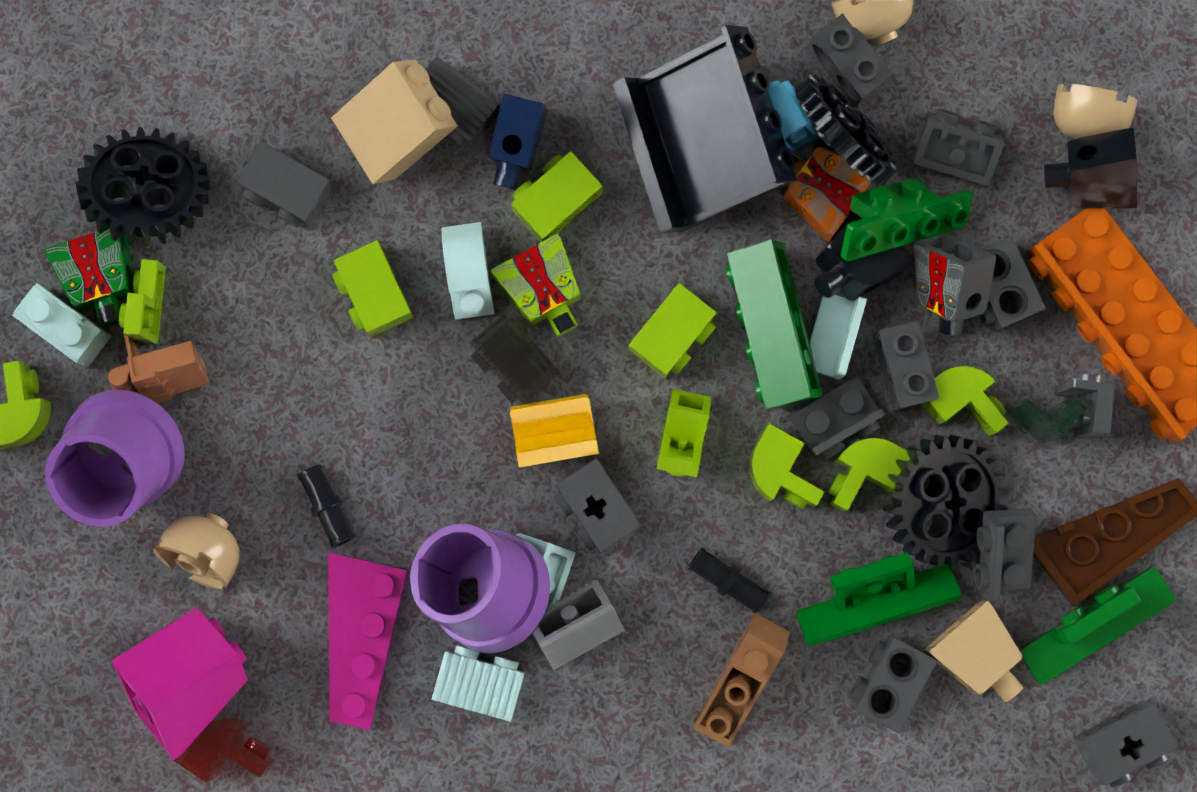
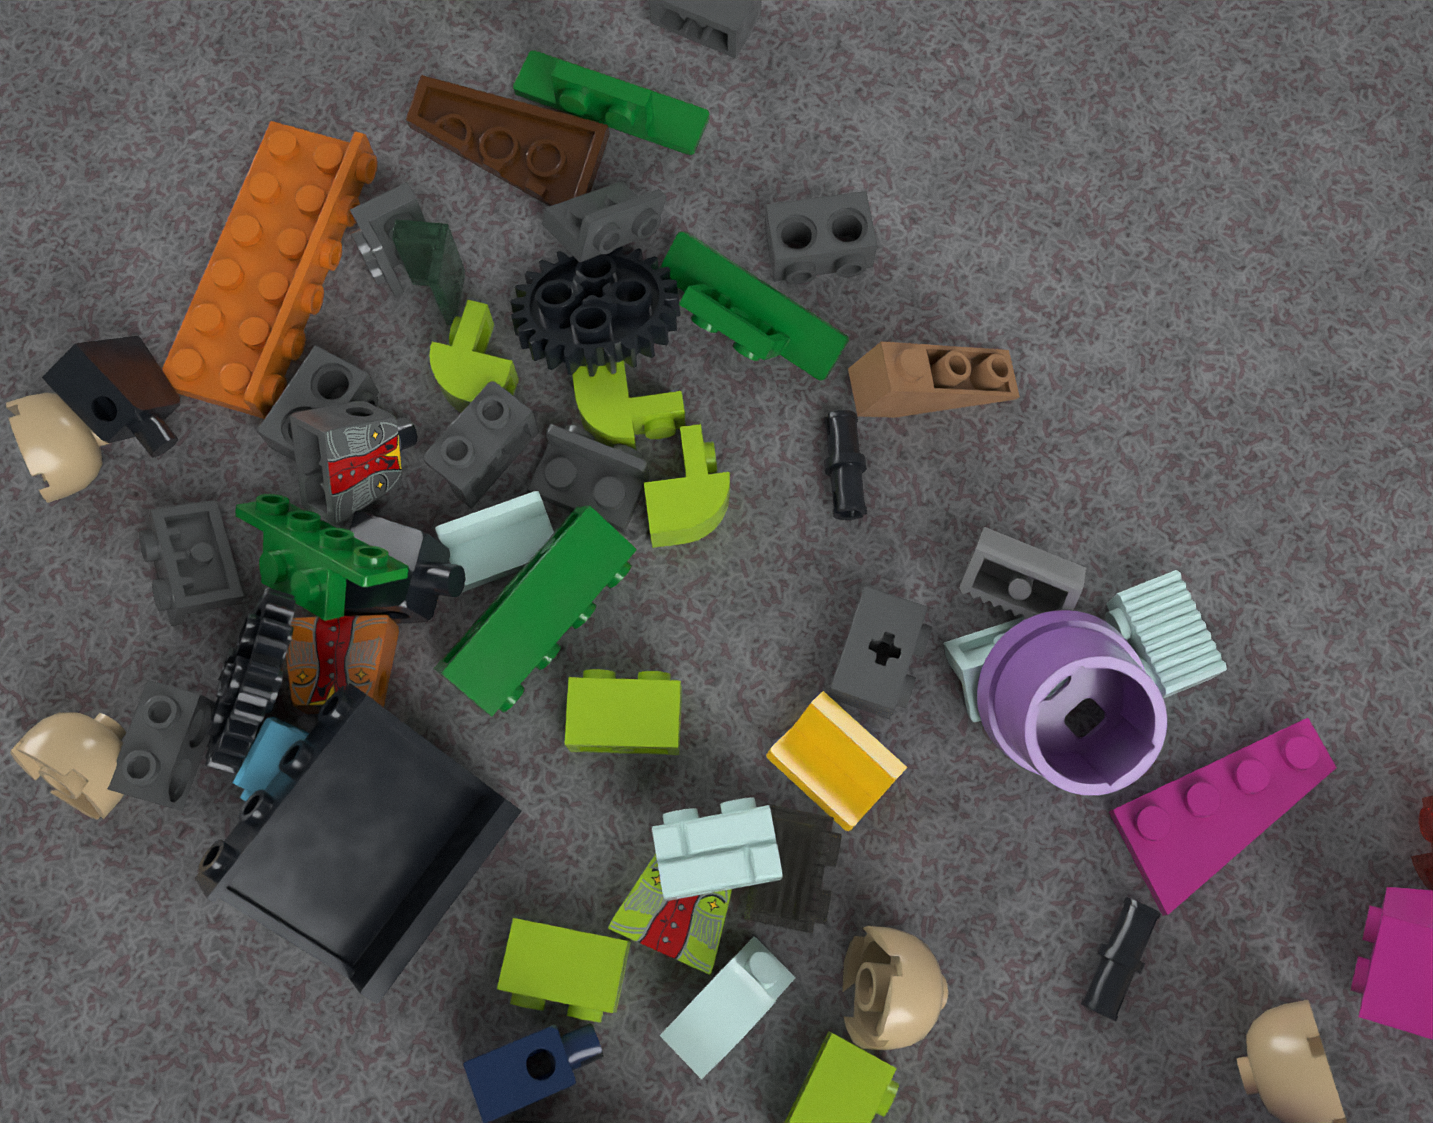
camera: 125 degrees left, 10 degrees down
(406, 366) = (895, 989): none -> tan cylinder
(552, 318) = (716, 850): none -> light aqua brick
(684, 433) = (730, 618): lime brick -> none
(979, 652) = (722, 183): tan torso -> none

